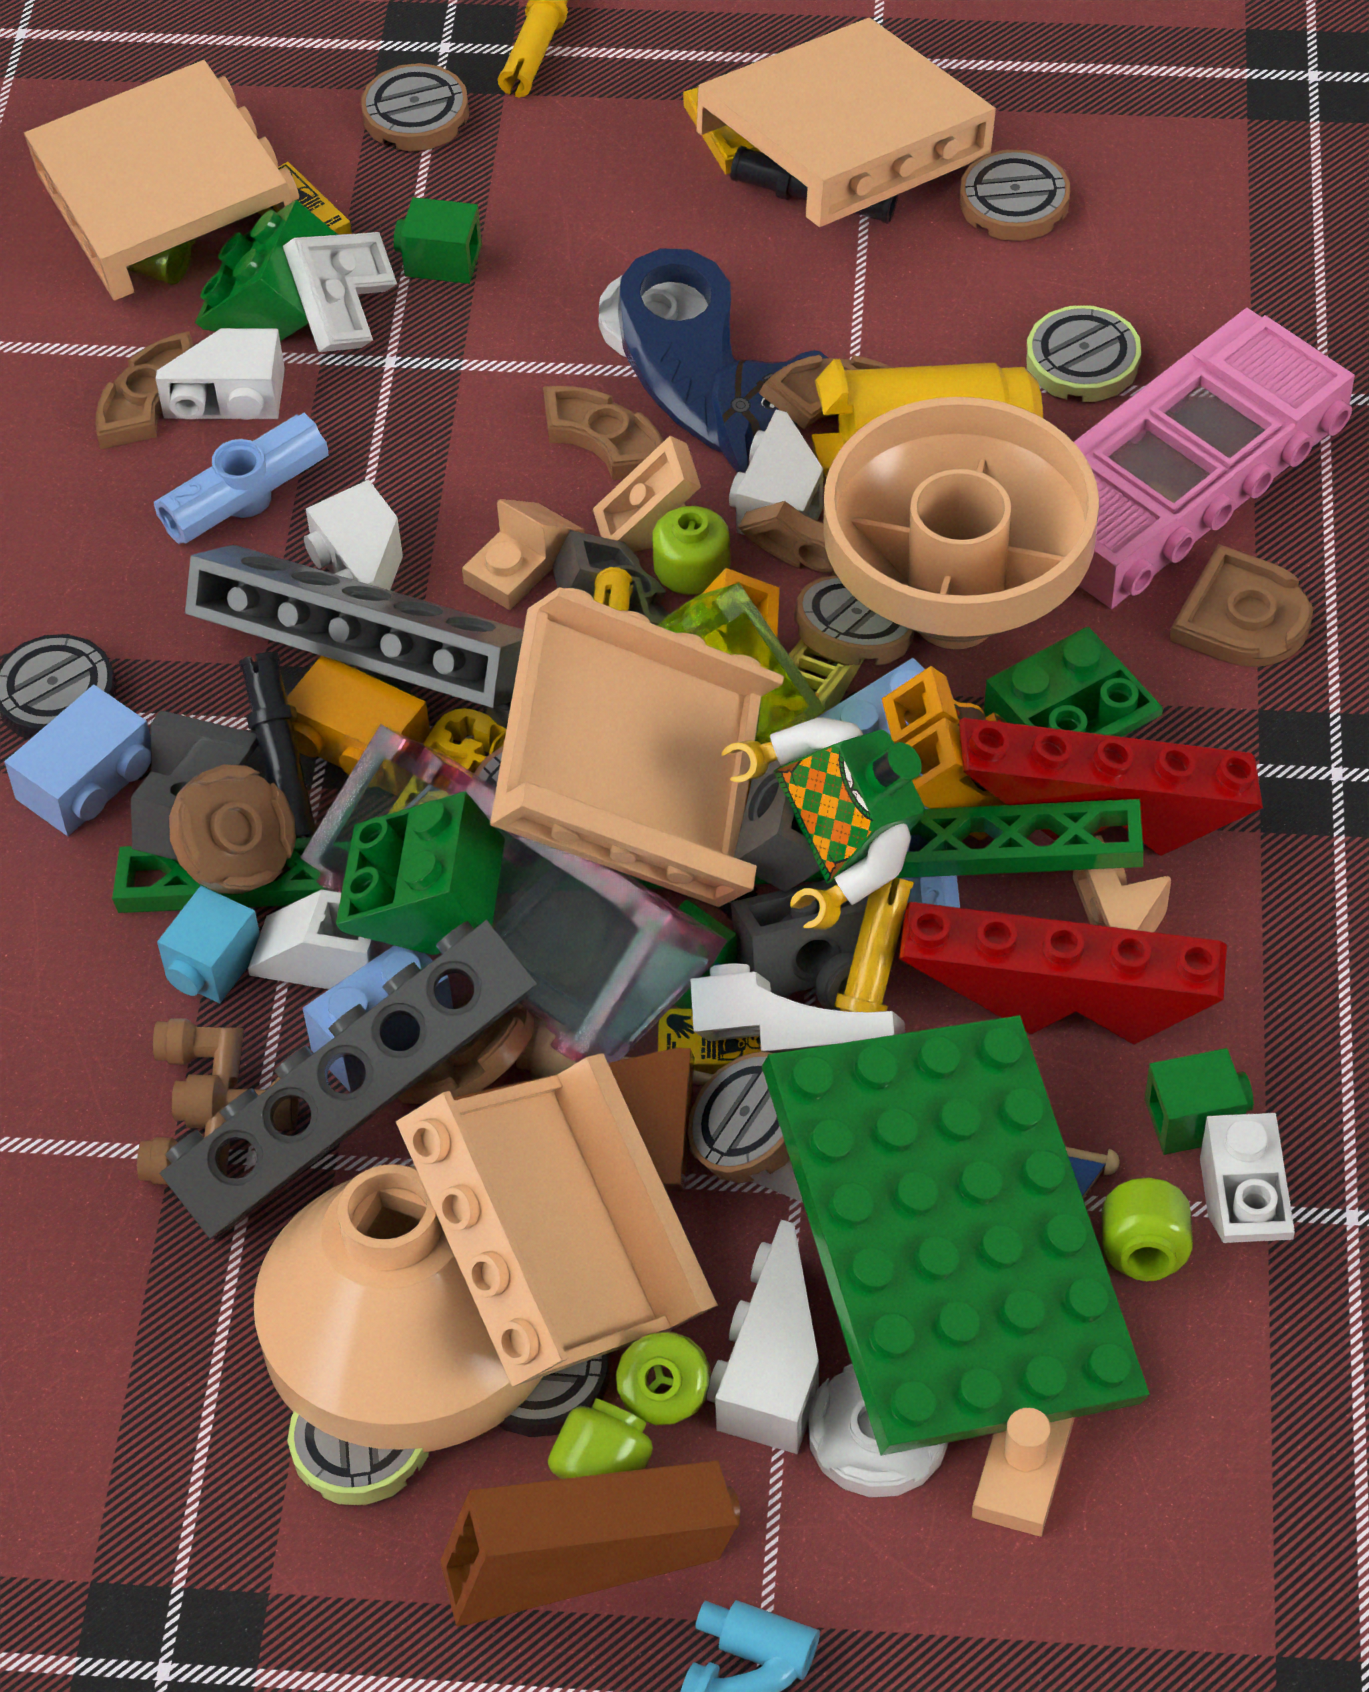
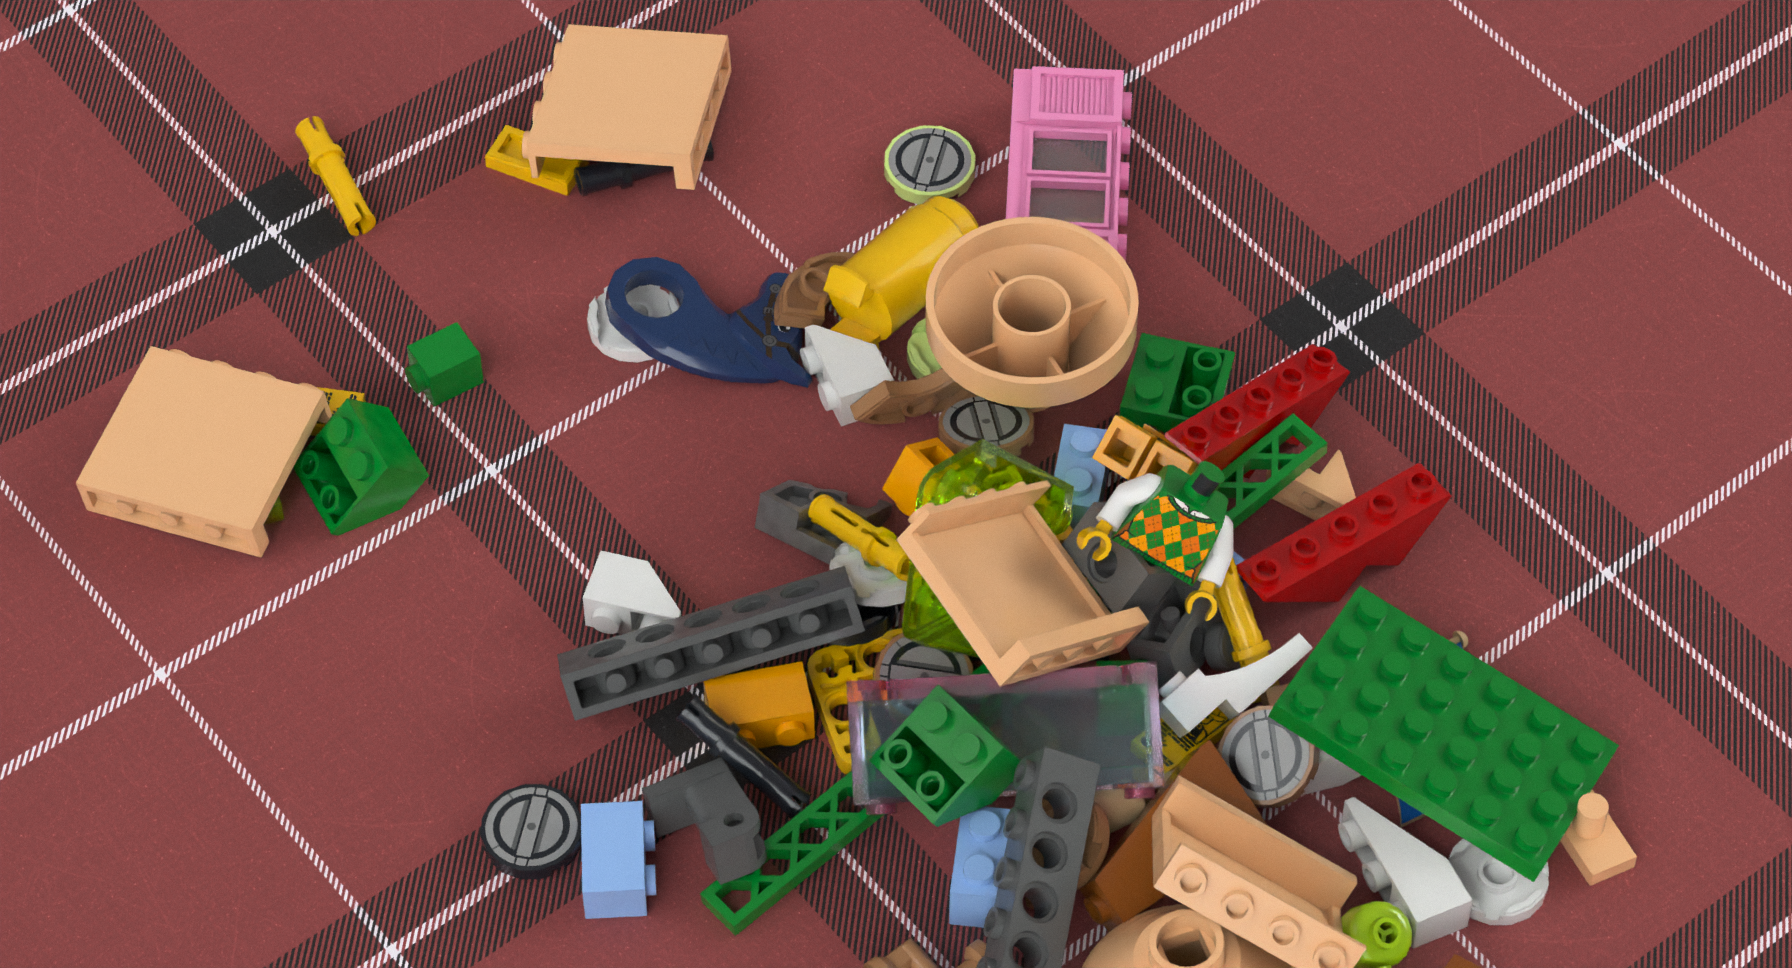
camera: 45 degrees left, 0 degrees up
(132, 402) = (352, 602): medium nougat tile -> none
(209, 945) = (830, 906): medium azure brick -> none
(225, 377) = (413, 551): white slope -> none
(232, 829) = (787, 821): medium nougat tile -> none
(241, 478) = (499, 632): light blue piece -> none
(307, 947) = (898, 854): white slope -> none
(329, 278) = (409, 432): white tile -> none
(415, 106) = (309, 285): tile -> none
(518, 553) = (730, 534): light nougat slope -> none
(600, 425) = (687, 416): medium nougat tile -> none
(647, 494) = (782, 439): light nougat slope -> none
(690, 549) = (845, 453): lime head -> none
(1014, 194) = (774, 87): tile -> none
(1147, 1229) = (1526, 656): lime head -> none
(1188, 1090) = (1475, 569): green brick -> none
(1244, 611) = (1193, 264): medium nougat tile -> none
(1246, 1178) = (1551, 592): white slope -> none

